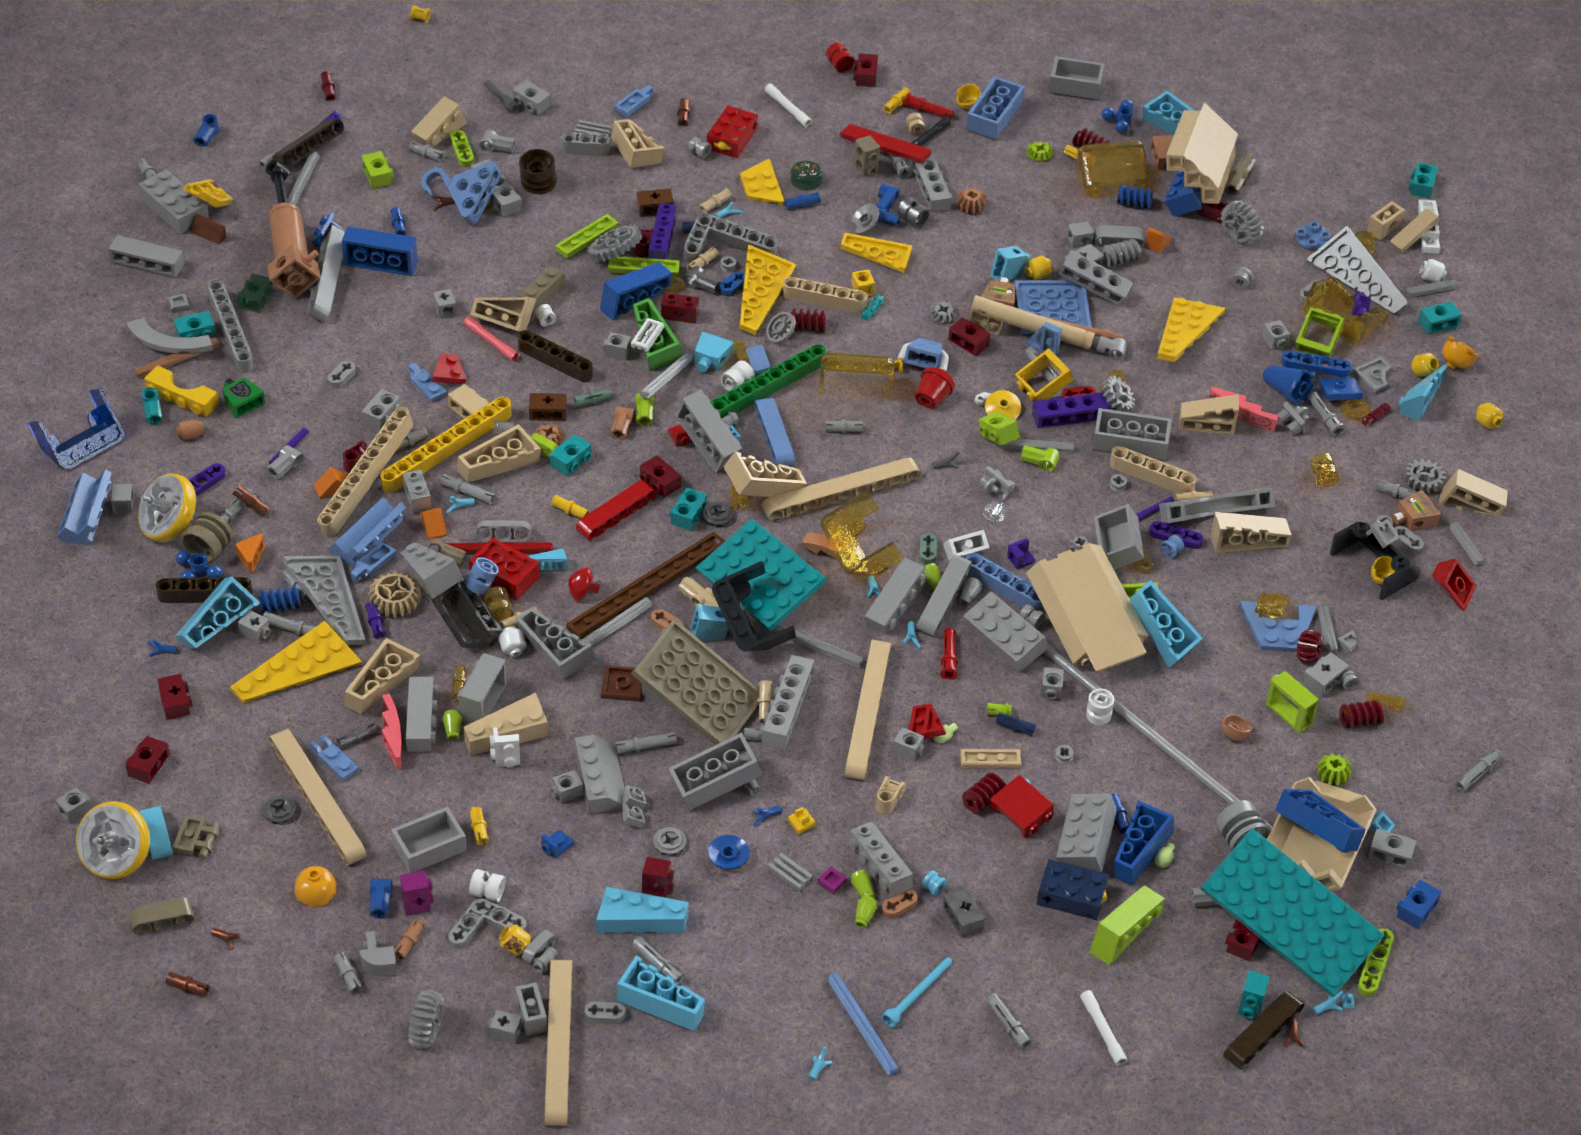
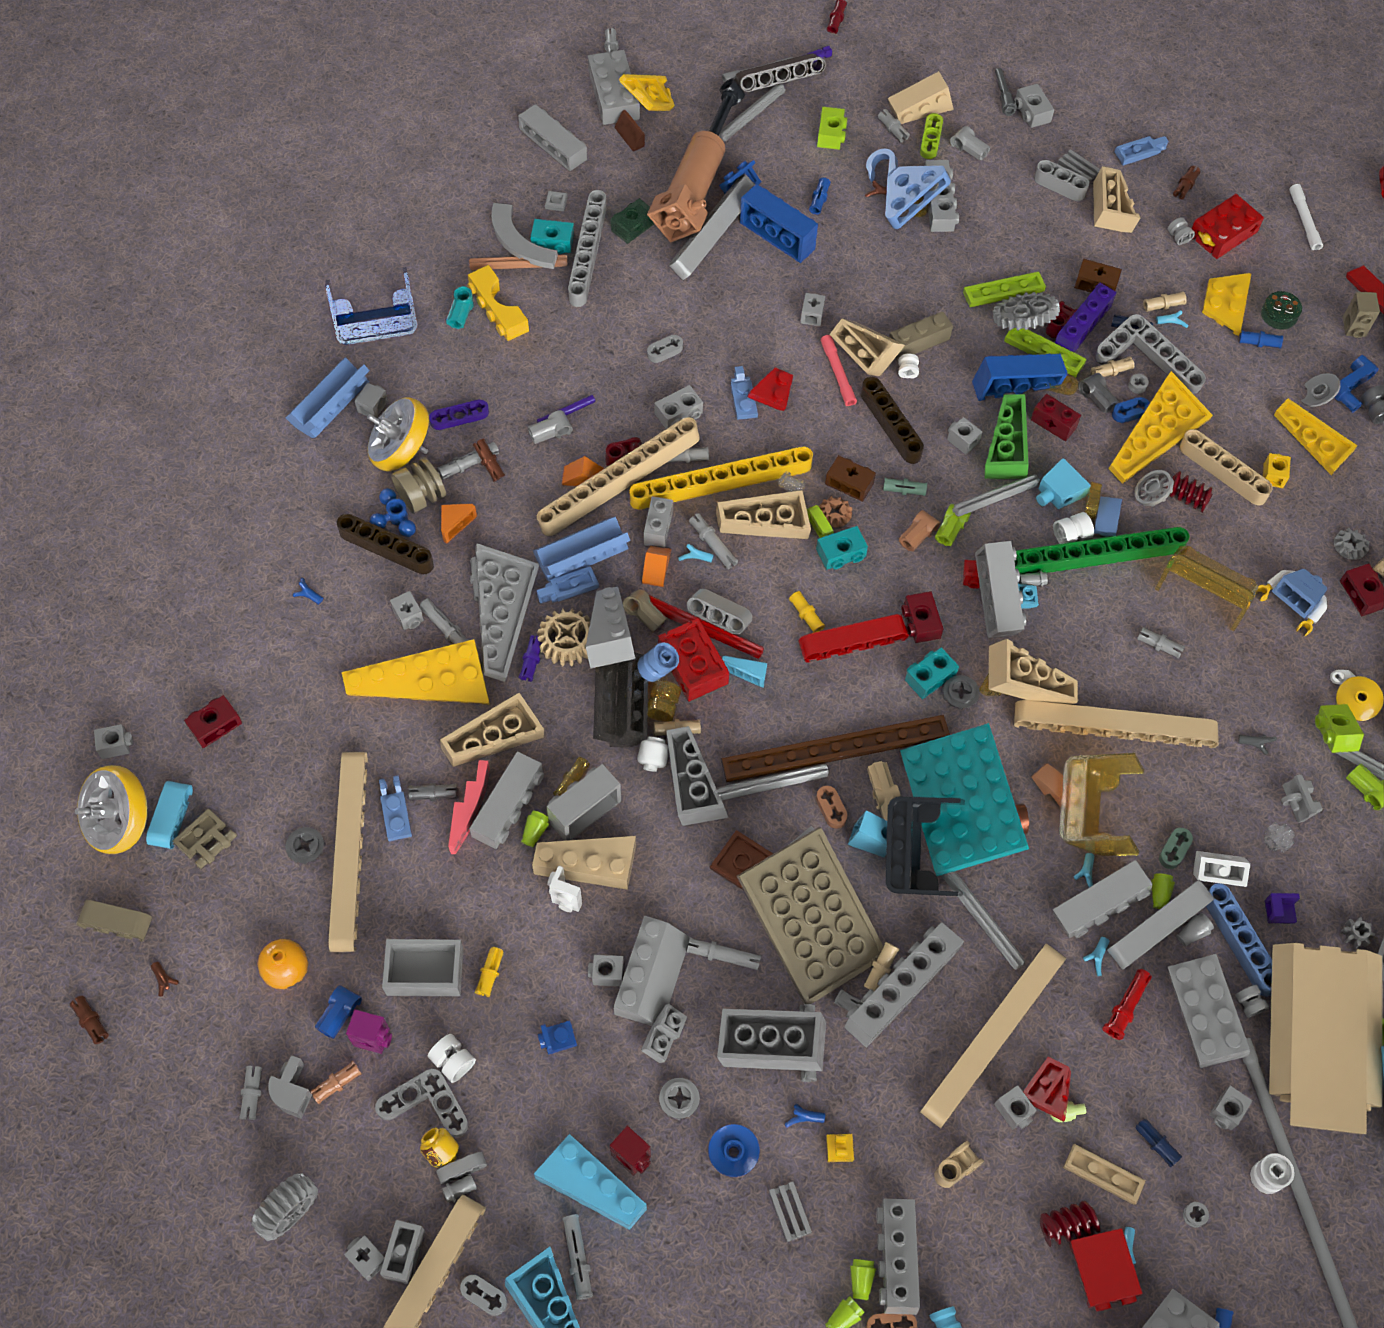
camera: 30 degrees right, 15 degrees up
(174, 696) = (282, 657): dark red brick -> none
(190, 429) = (481, 350): nougat brick -> none
(207, 130) = (694, 20): blue piece -> none
(218, 611) = (379, 578): medium azure wedge -> none
(242, 396) = (551, 333): green torso -> none
(279, 599) = (448, 591): blue piece -> none
(465, 401) = (769, 435): tan brick -> none
(537, 171) = (991, 193): dark brown wheel -> none
(581, 582) = (765, 714): red piece -> none
(650, 336) = (1001, 441): white tile -> none
(774, 431) = (1078, 617): medium blue beam -> none
(832, 880) = (830, 1251): magenta plate -> none
(872, 307) = (1272, 504): teal axle -> none
(934, 387) = (1289, 640): red piece -> none
(999, 708) = (1148, 1111): lime pin -> none

